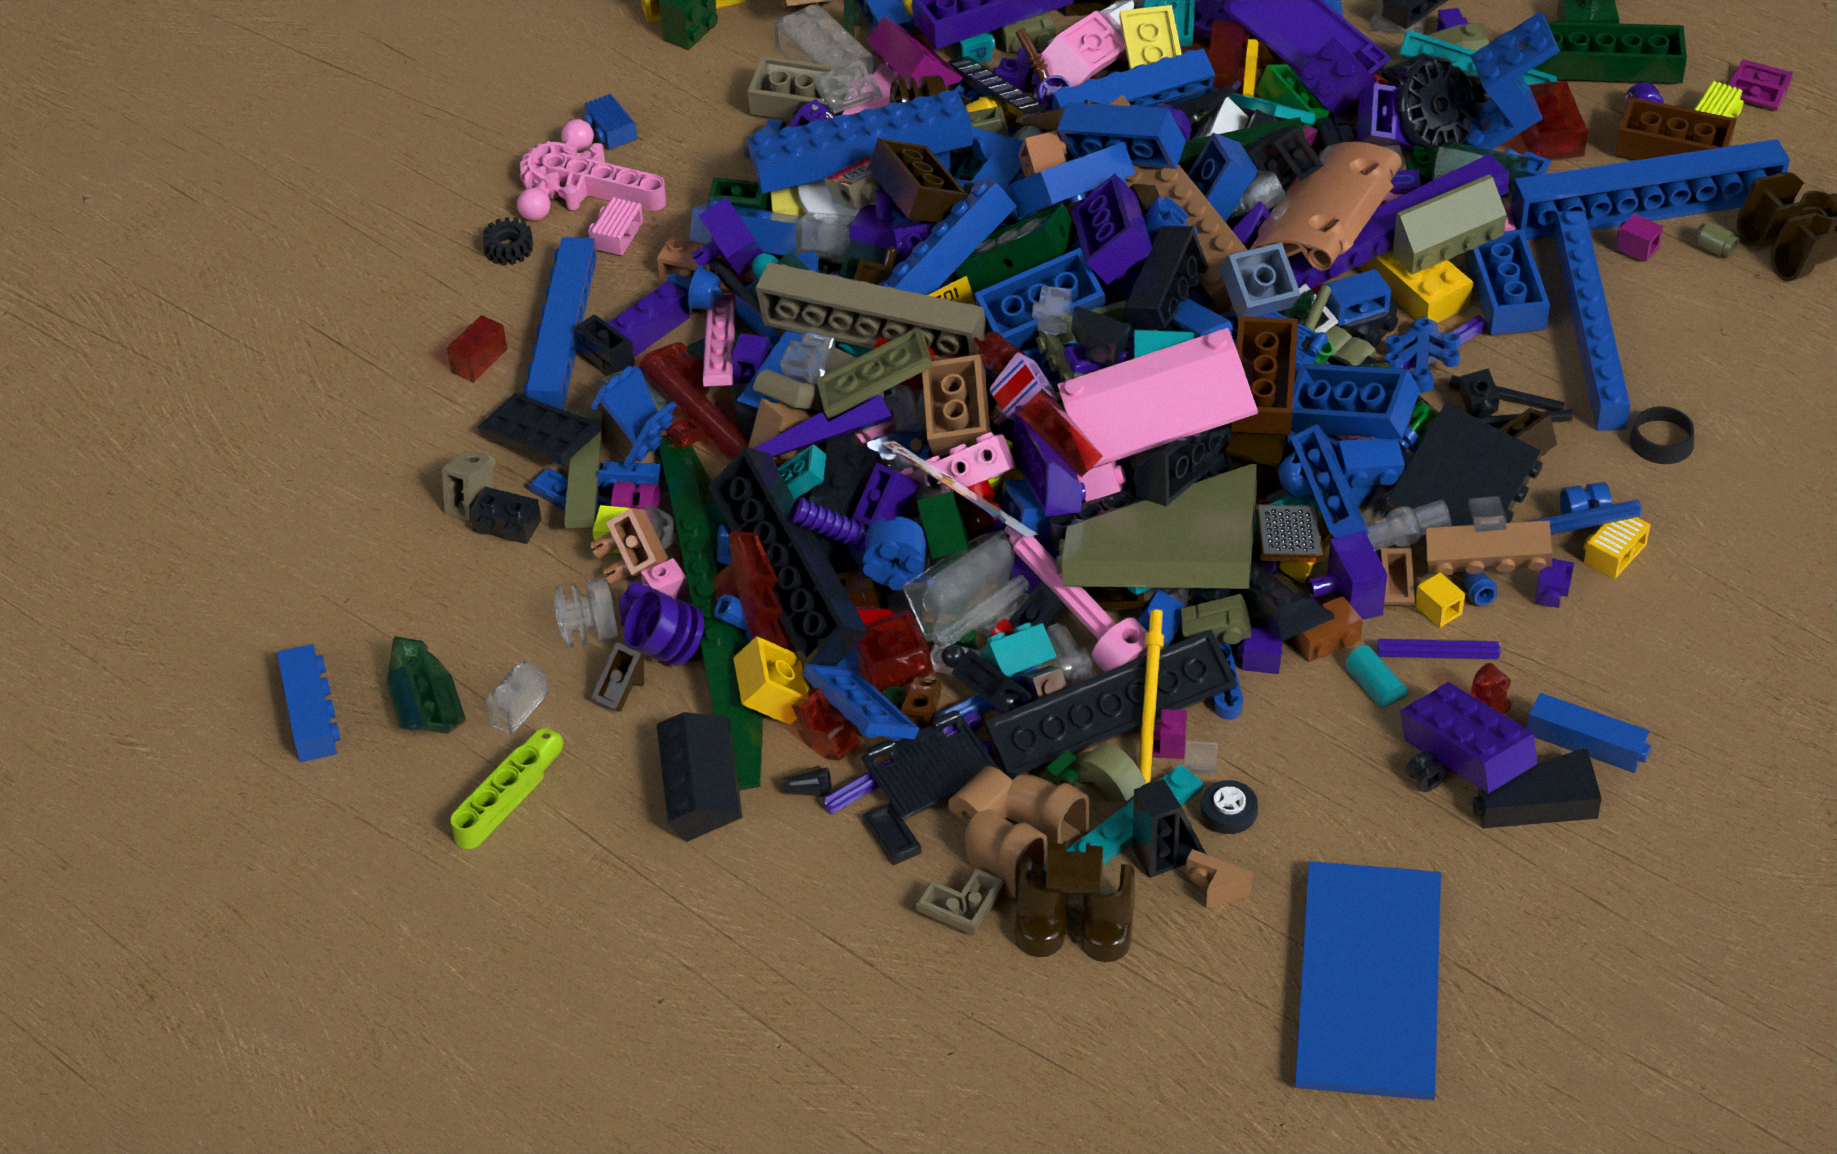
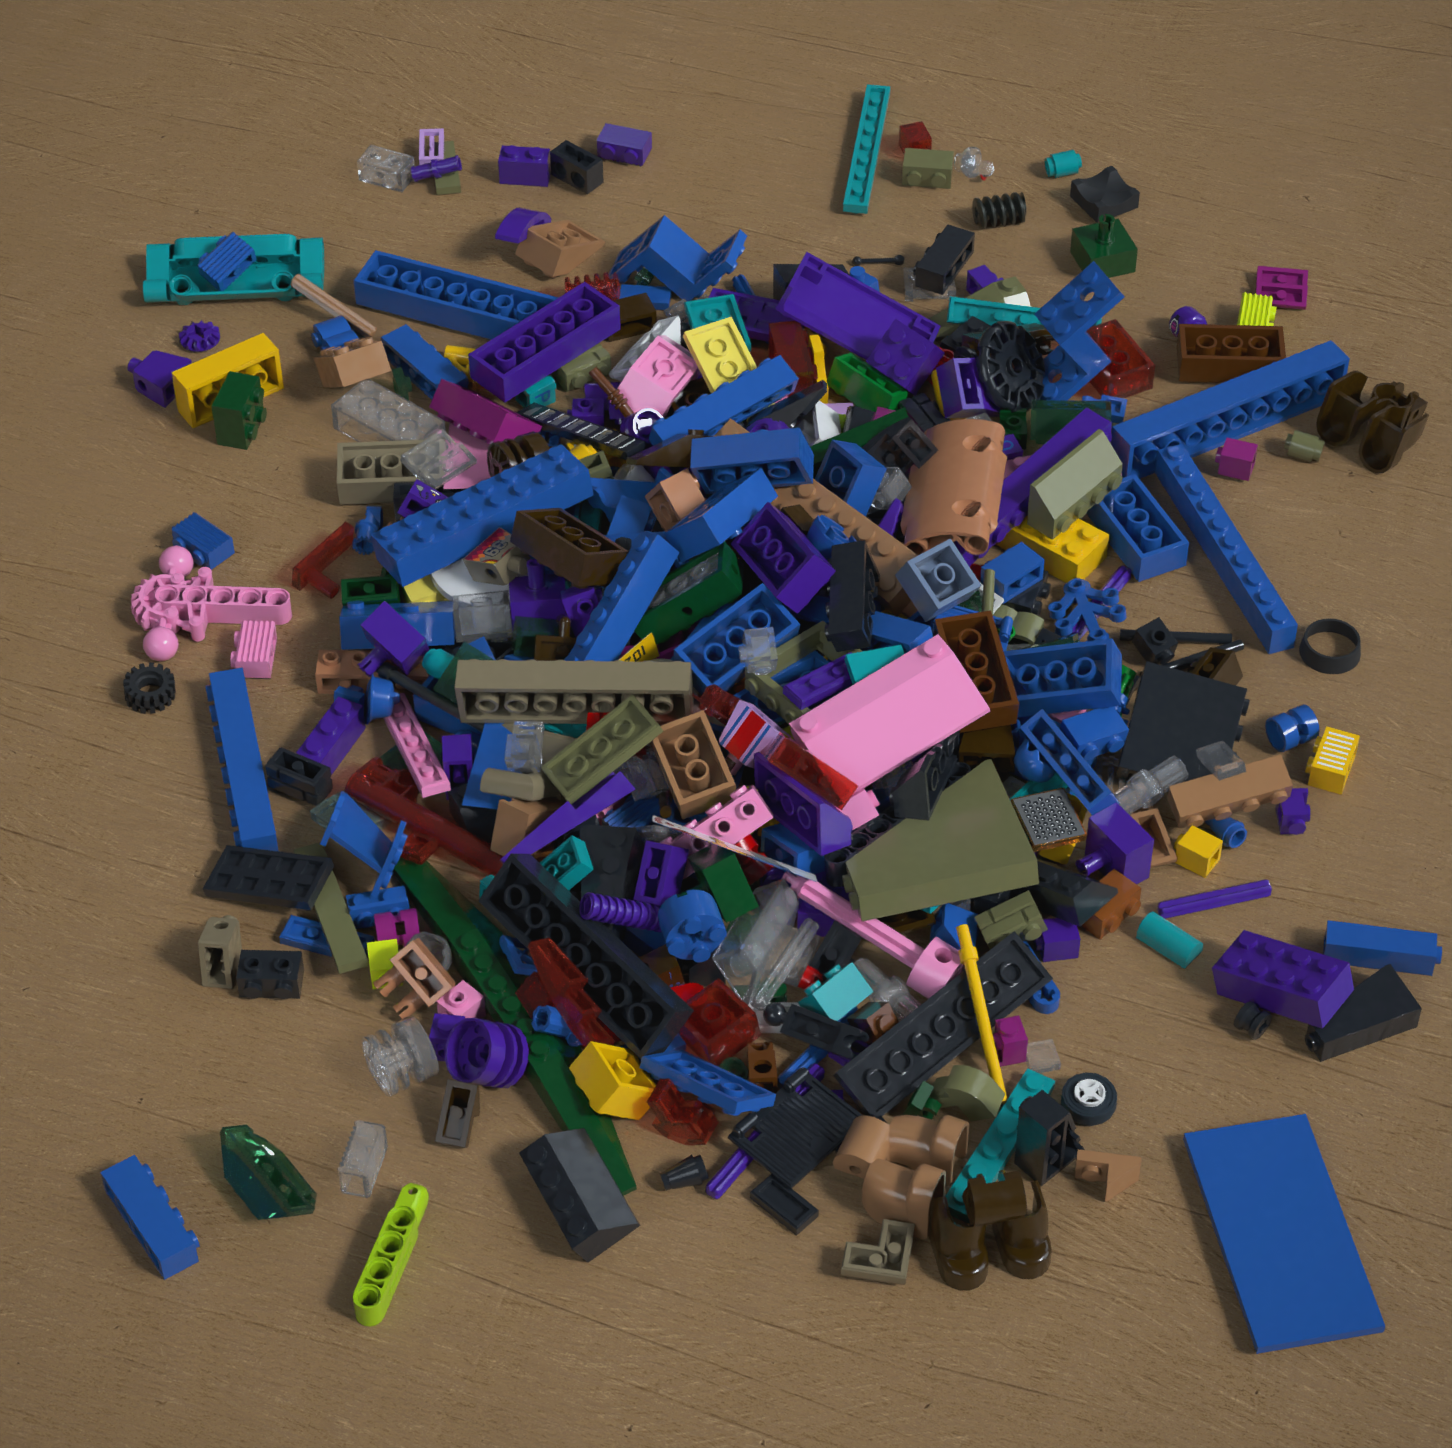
camera: 20 degrees left, 0 degrees up
(477, 348) = (167, 807): clear red brick -> none
(698, 163) = (310, 568): none -> clear red piece
(1099, 336) = (814, 667): black slope -> none
(1272, 108) = (860, 400): teal tile -> none
(1491, 687) = (1283, 925): clear red leg -> none
(1594, 516) = (1305, 741): blue axle -> none
(1617, 52) = (1150, 278): dark green brick -> none

